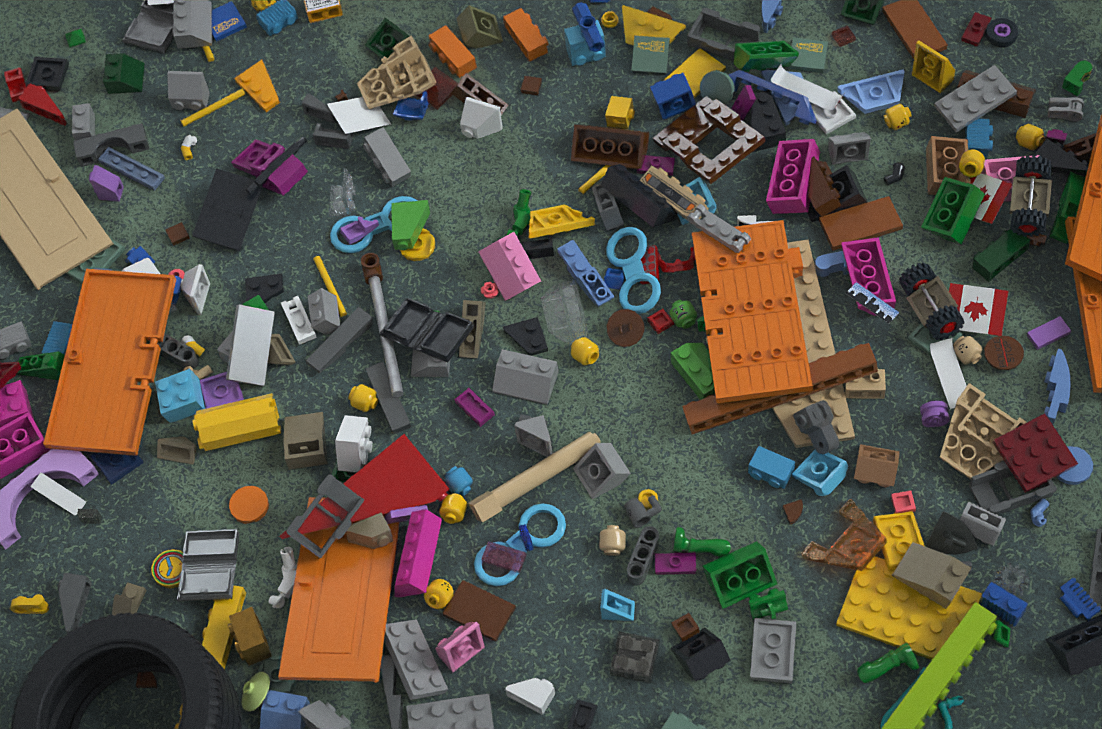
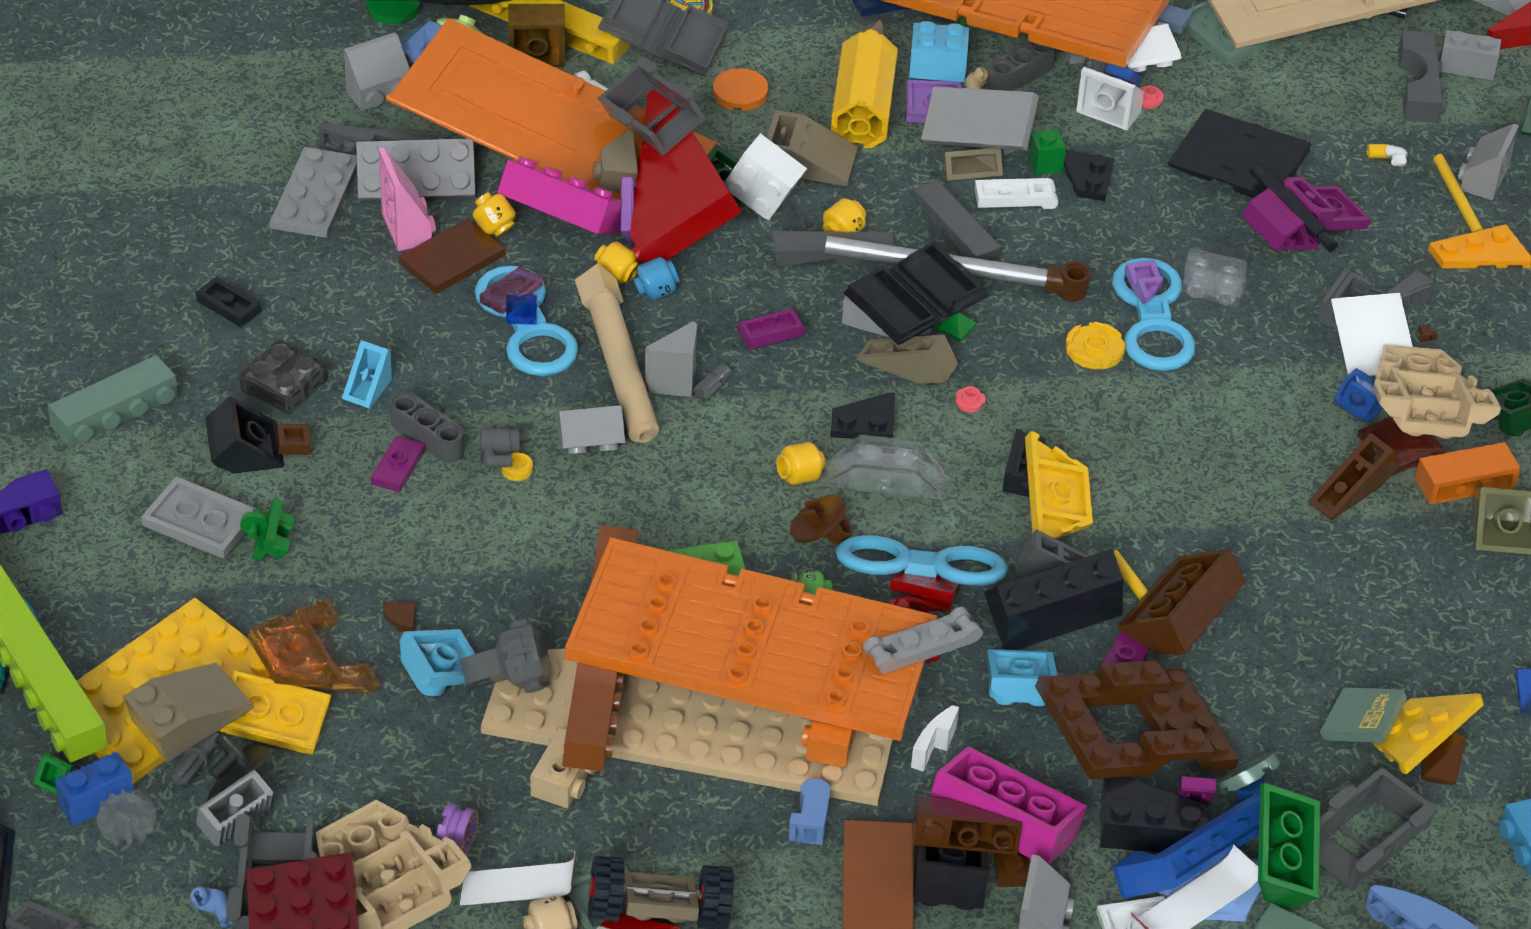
camera: 100 degrees right, 15 degrees down
(105, 184) = (1340, 49): medium lavender slope -> none
(131, 168) = (1370, 93): sand blue tile -> none
(137, 255) = (1196, 65): blue bracket -> none
(177, 234) = (1230, 108): reddish brown tile -> none
(189, 341) = (1026, 83): yellow arm -> none
(323, 311) = (1010, 210): light grey brick -> none
(329, 285) = (1062, 240): yellow bar -> none
(386, 157) = (1270, 338): light grey wedge -> none
(408, 222) = (1126, 327): bright green slope -> none
(480, 119) = (1303, 459): white slope -> none
(509, 266) = (991, 416): bright pink slope -> none
(521, 213) = (1100, 468): green arm -> none
(525, 34) = (1472, 571): orange brick -> none
(525, 376) = (794, 392): light grey slope -> none
(531, 85) = (1361, 555): reddish brown tile -> none
(532, 693) = (295, 266): white slope -> none
(577, 46) = (1413, 626): medium azure brick -> none
(584, 274) = (932, 508): medium blue slope -> none
(588, 27) = (1419, 599): blue piece -> none
(609, 16) = (1472, 686): yellow plate -> none
(612, 540) = (470, 403): tan head -> none
(614, 278) = (925, 539): blue slope -> none
(619, 112) = (1251, 638): yellow head -> none
(660, 321) = (818, 562): red tile -> none
(673, 95) = (1247, 698): blue brick -> none
(677, 196) = (1039, 640): brick -> none
(696, 67) = (1303, 764): yellow tile -> none
(717, 547) = (406, 481): green piece -> none
(740, 574) = (335, 516): green slope -> none
(771, 467) = (483, 607): dark azure brick -> none
(868, 268) = (756, 834): dark pink slope -> none
(872, 302) = (692, 803): sticker -> none
(872, 670) = (92, 628): green piece -> none
(876, 465) = (415, 730): medium nougat slope -> none
(903, 502) = (333, 741): coral plate -> none
(1074, 603) = (43, 886): blue piece -> none

